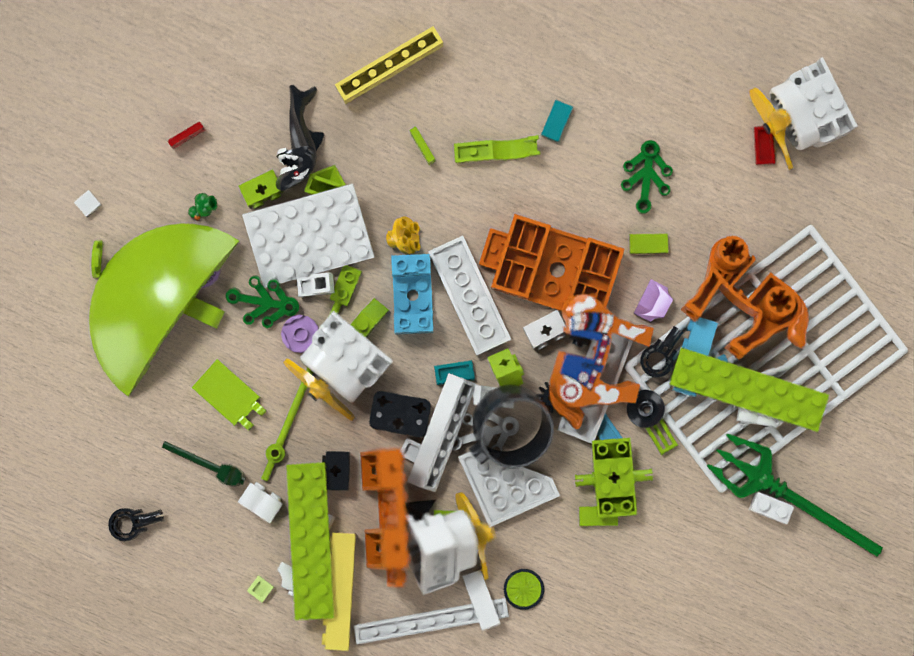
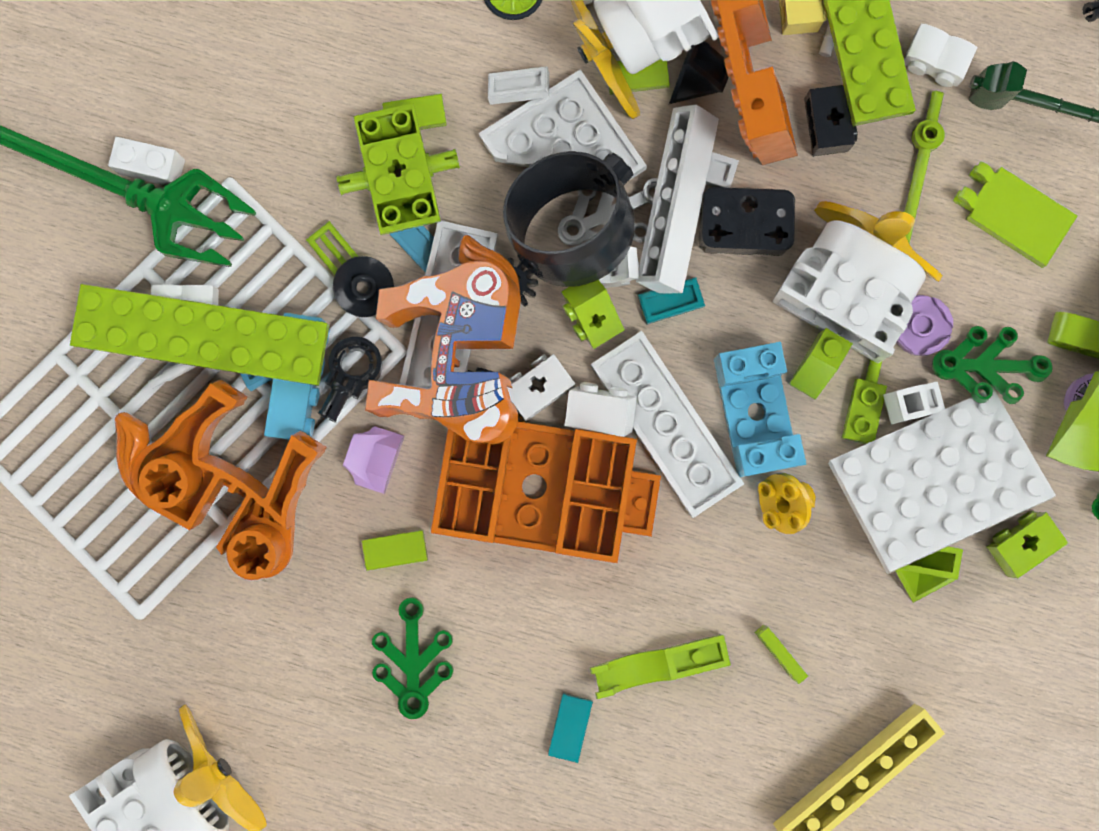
camera: 165 degrees right, 0 degrees up
(304, 143) = (970, 629): black piece -> none
(509, 309) = (600, 410): none -> white brick
(530, 523) = (518, 85): none -> white tile
(763, 146) = (230, 736): red tile -> none

